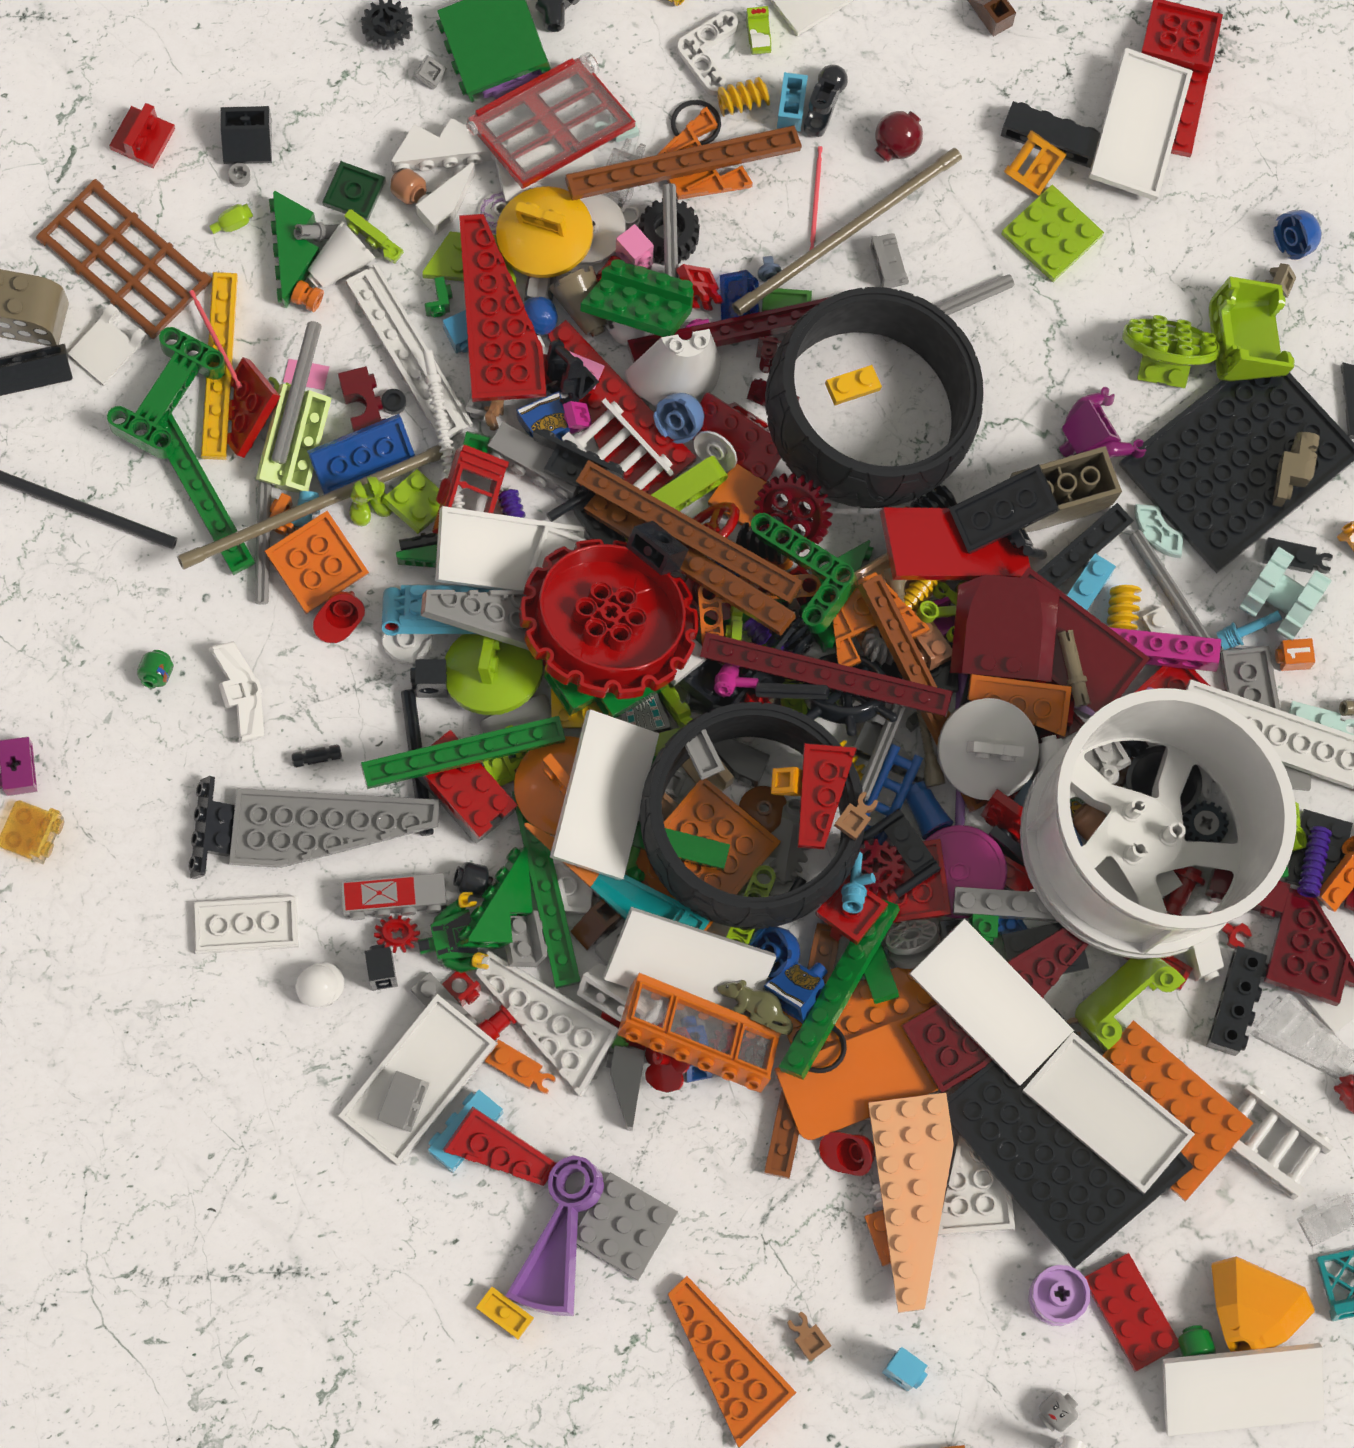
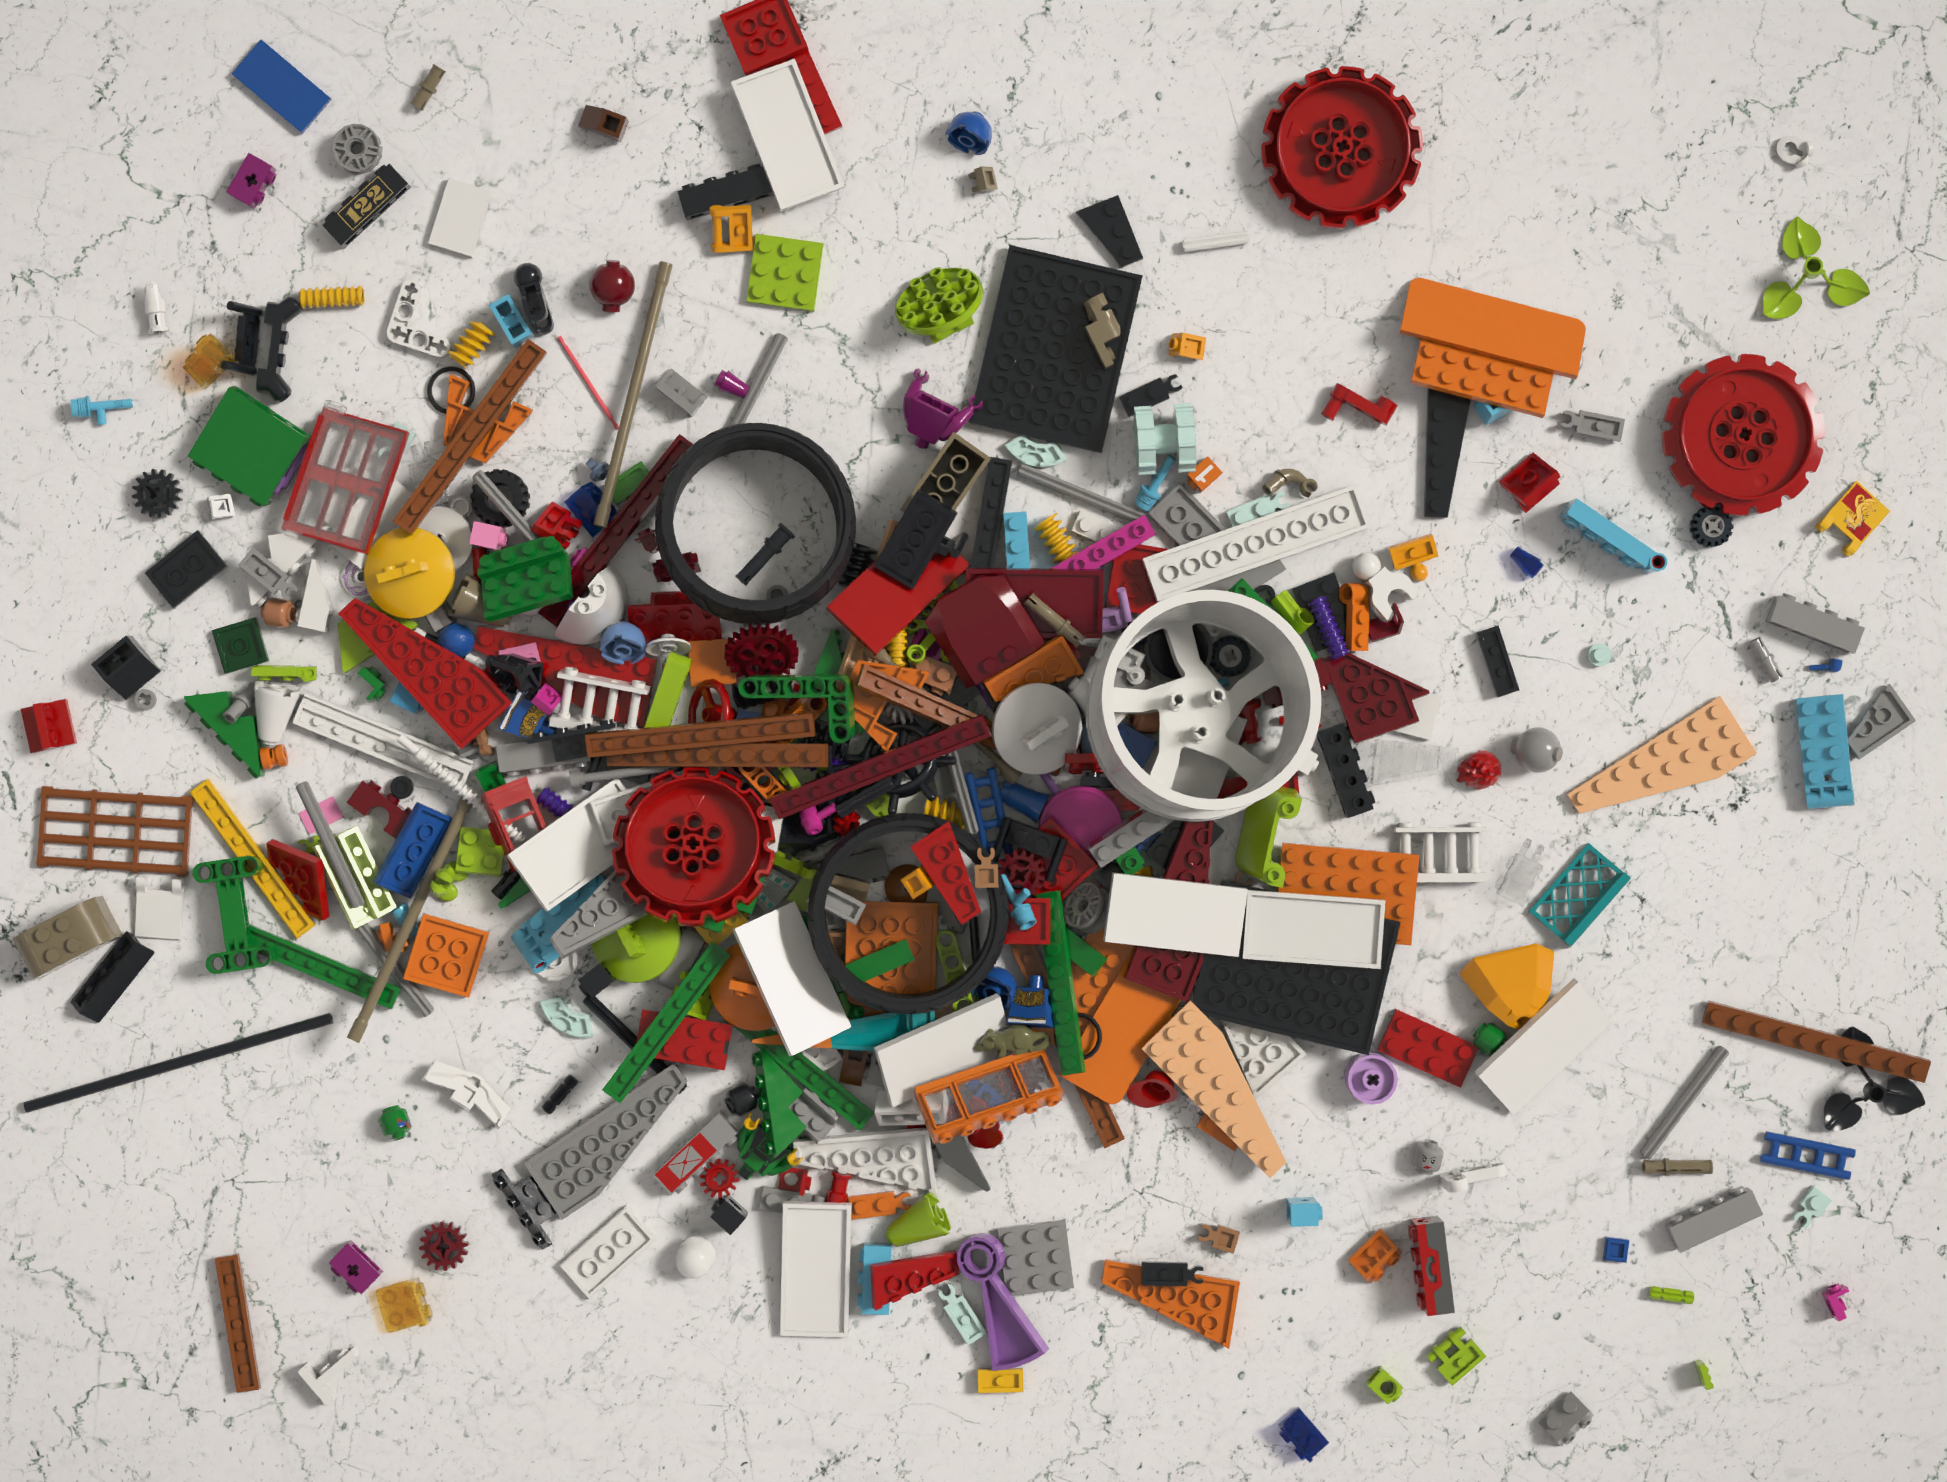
camera: 30 degrees left, 15 degrees up
(102, 814) = (443, 1235): none -> dark red gear
(215, 339) = (245, 849): coral piece -> none
(232, 218) = (169, 738): lime plant -> none
(338, 617) = (494, 982): red piece -> none
(360, 98) = (186, 569): none -> black plate
(373, 696) = (565, 1019): none -> light aqua tile
(403, 1101) = (818, 1294): light grey hinge -> none
(426, 143) = (267, 573): none -> light grey plate
(517, 1227) = (963, 1316): none -> light aqua plate
(544, 1109) = (919, 1223): none -> lime cone
(552, 501) = (578, 778): none -> light grey piece
(657, 547) = (688, 768): black brick -> none
(736, 1330) = (1168, 1273): none -> black plate
(758, 30) = (441, 279): lime leg -> none
(853, 385) = (738, 540): yellow plate -> none
(878, 410) = (771, 547): none -> black pin
(936, 285) = (731, 384): none -> magenta cone
(1247, 331) = (990, 245): lime windscreen -> none

